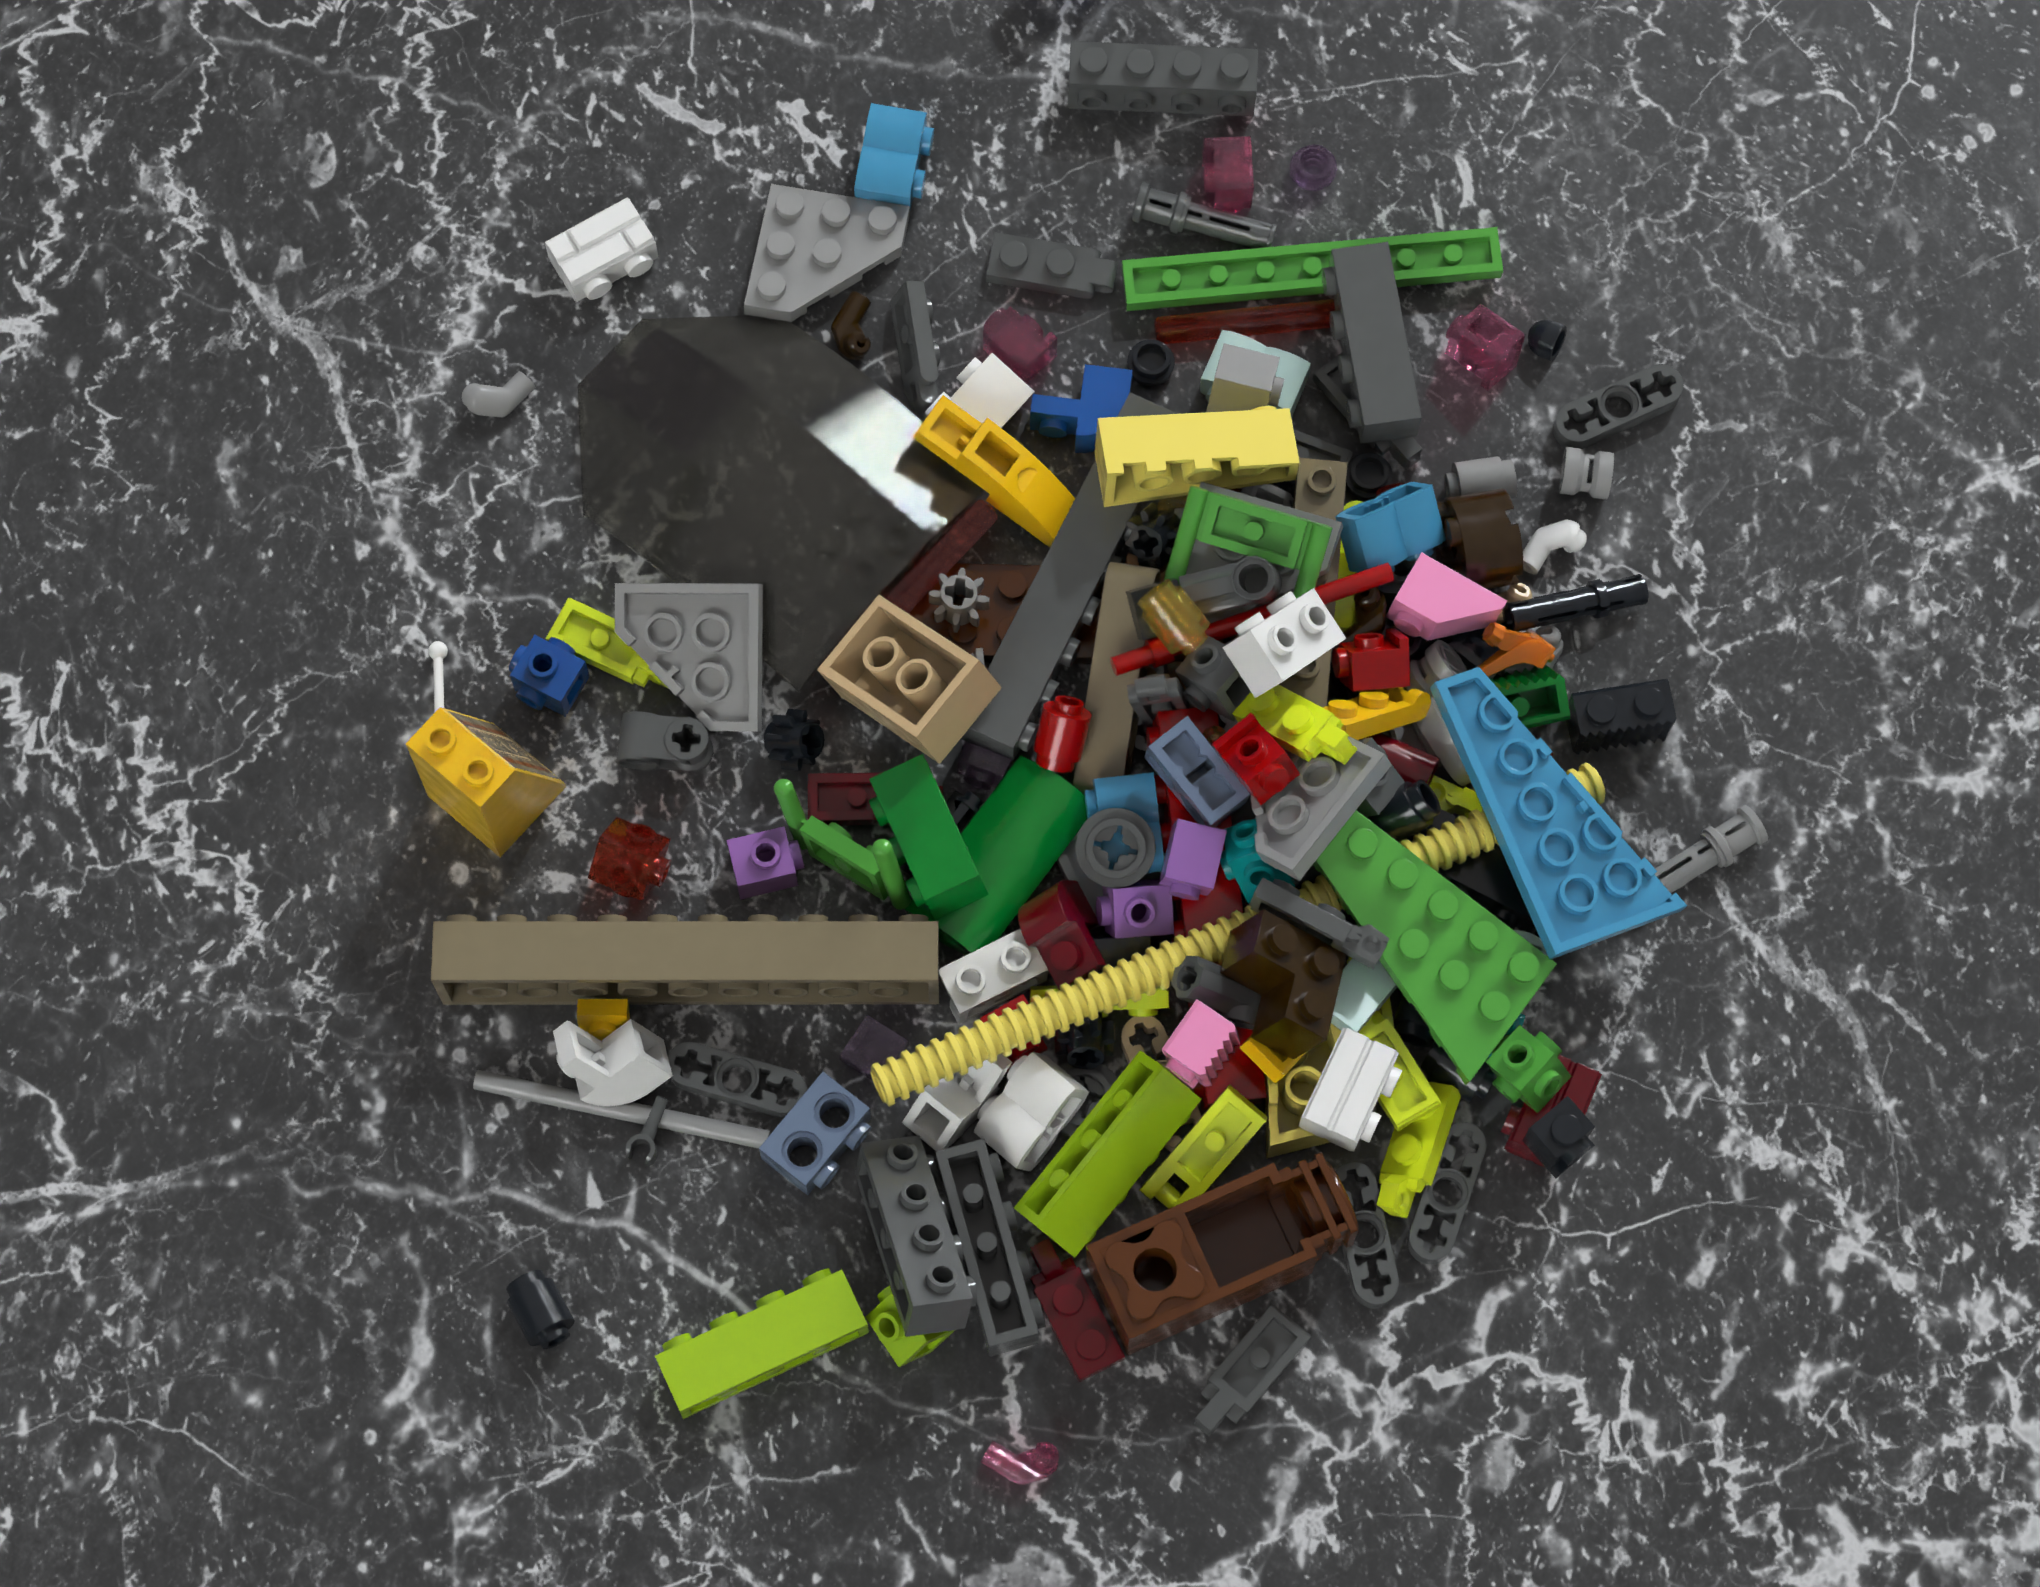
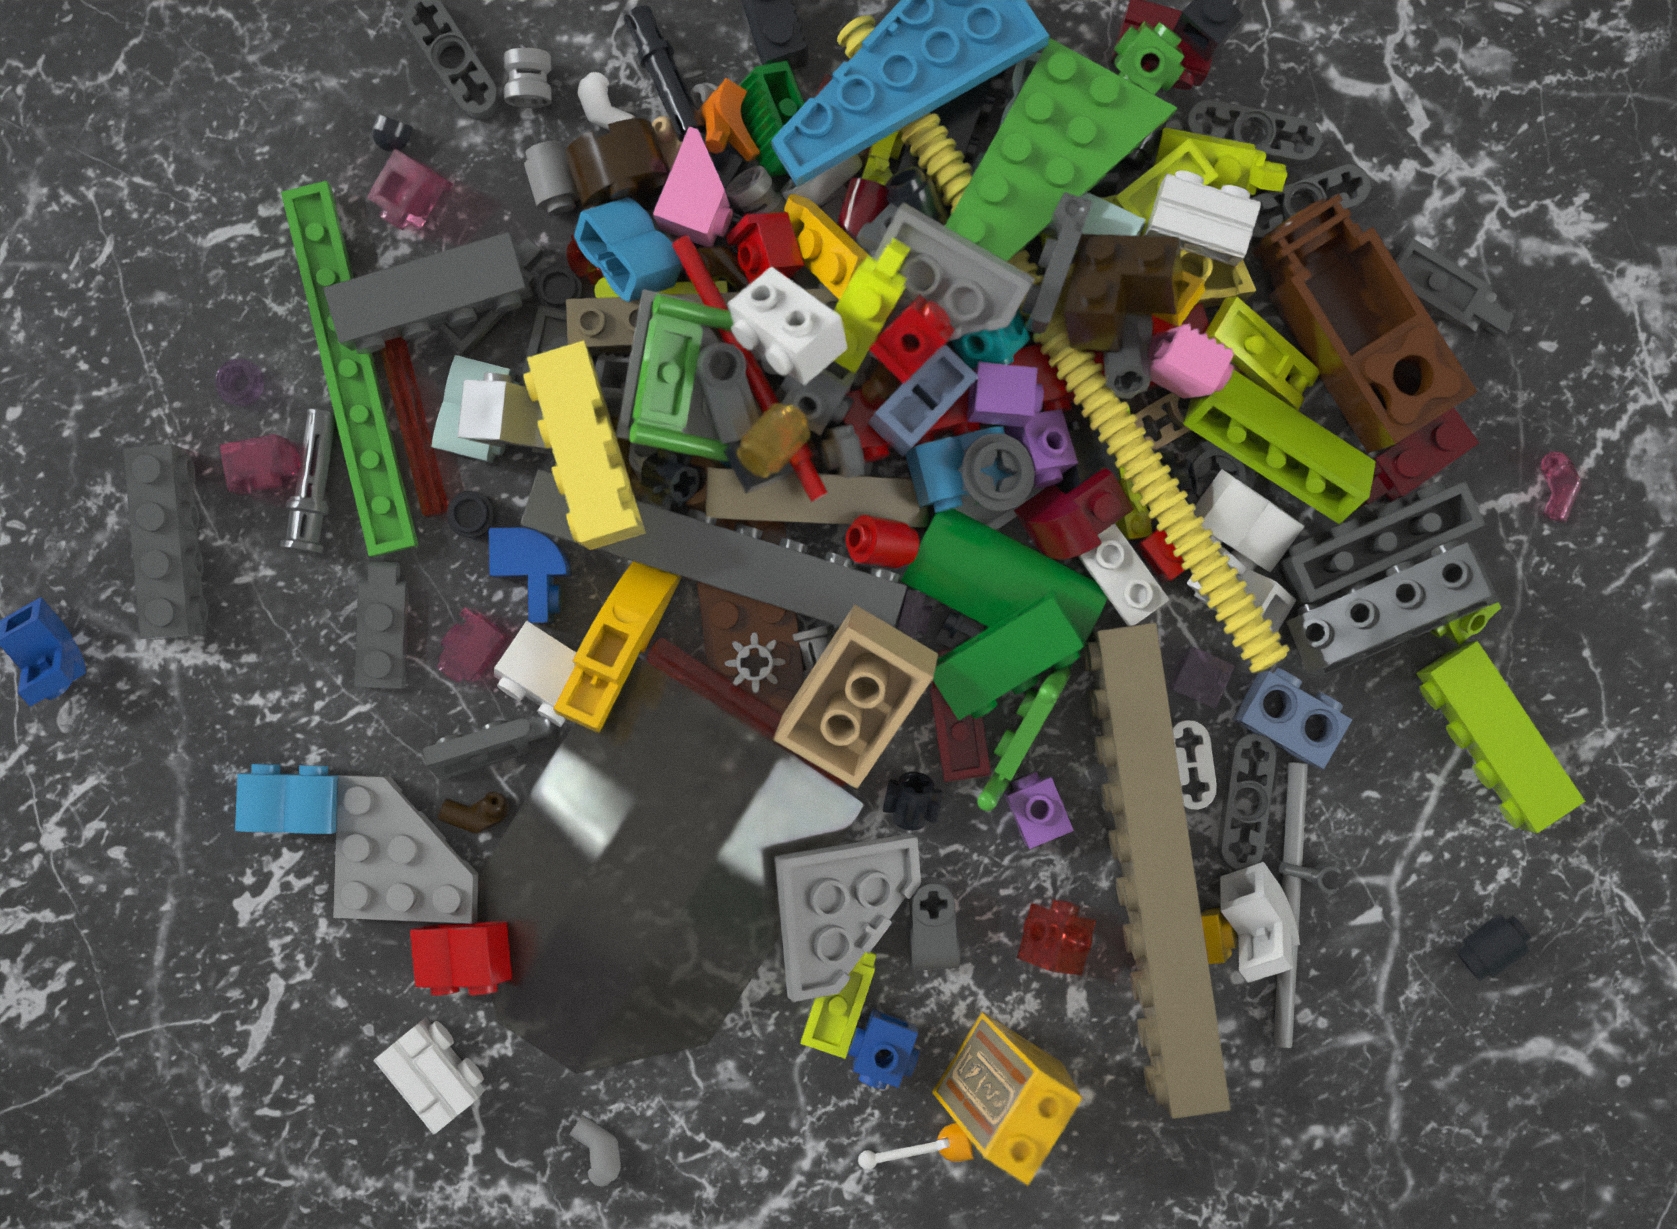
camera: 100 degrees left, 15 degrees up
(713, 290) = (461, 956): none -> red brick
(785, 1040) = (1201, 762): none -> white beam

